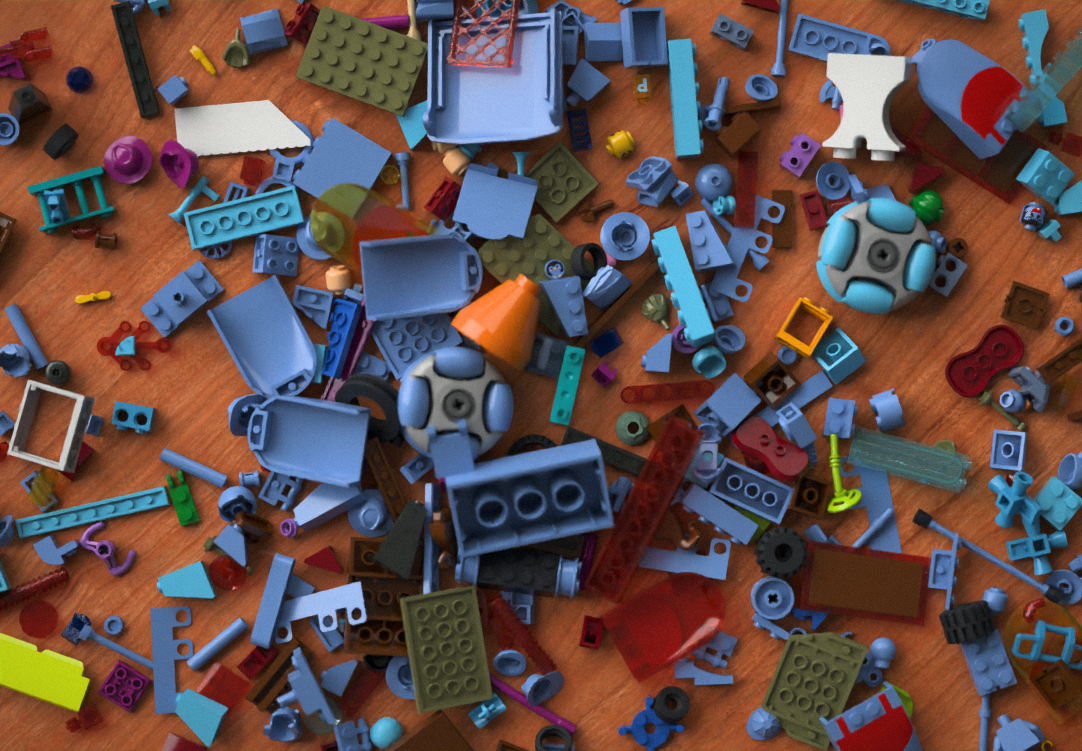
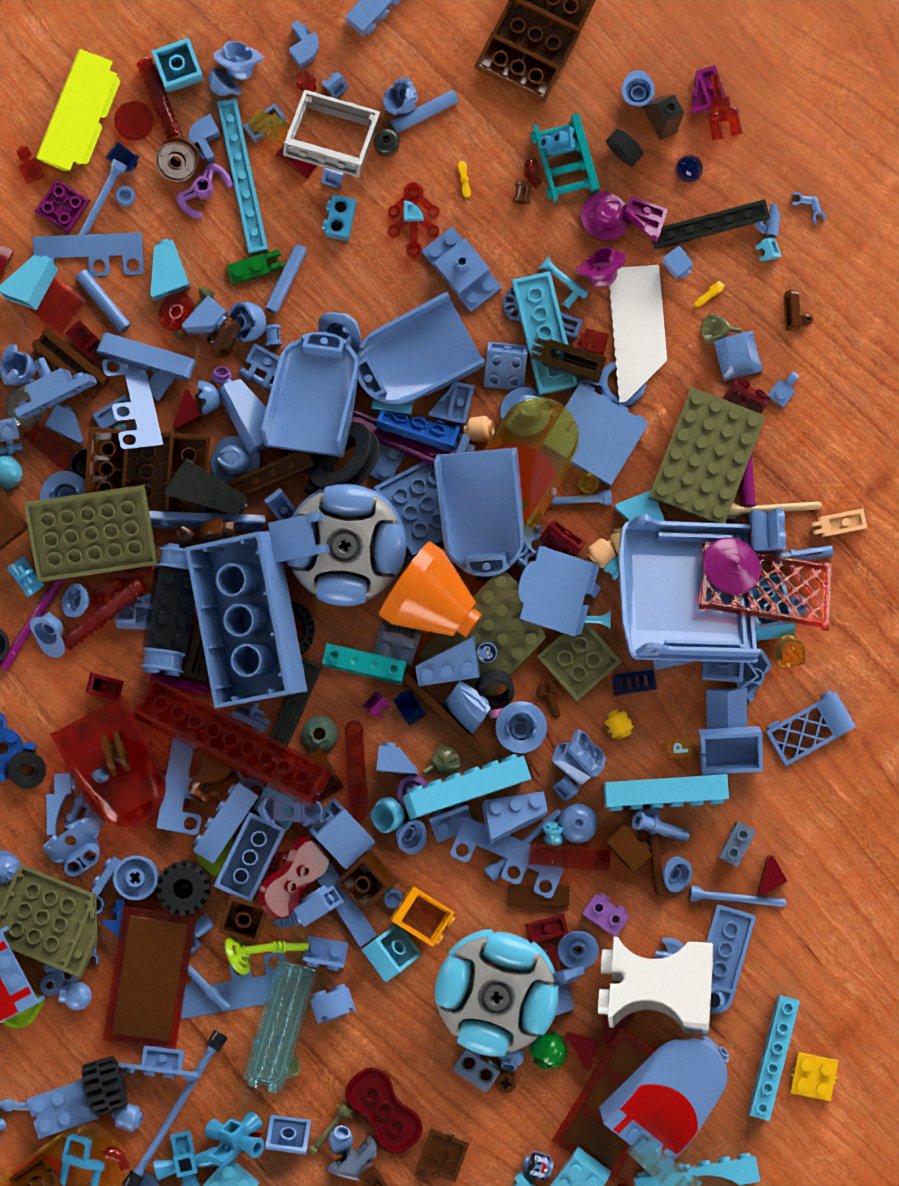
camera: 85 degrees right, 5 degrees down
(68, 570) = (181, 148): none -> reddish brown wheel
(128, 120) = (646, 216): none -> magenta wing
(271, 187) = (576, 361): none -> dark brown hinge
(311, 539) = (209, 396): none -> medium blue hair
(469, 36) = (732, 566): none -> magenta hat
(585, 83) = (682, 689): medium blue torso -> none
(655, 620) = (115, 752): none -> reddish brown wheel
(676, 634) = (100, 775): none -> medium blue hinge
(732, 646) = (86, 835): none -> medium blue piece

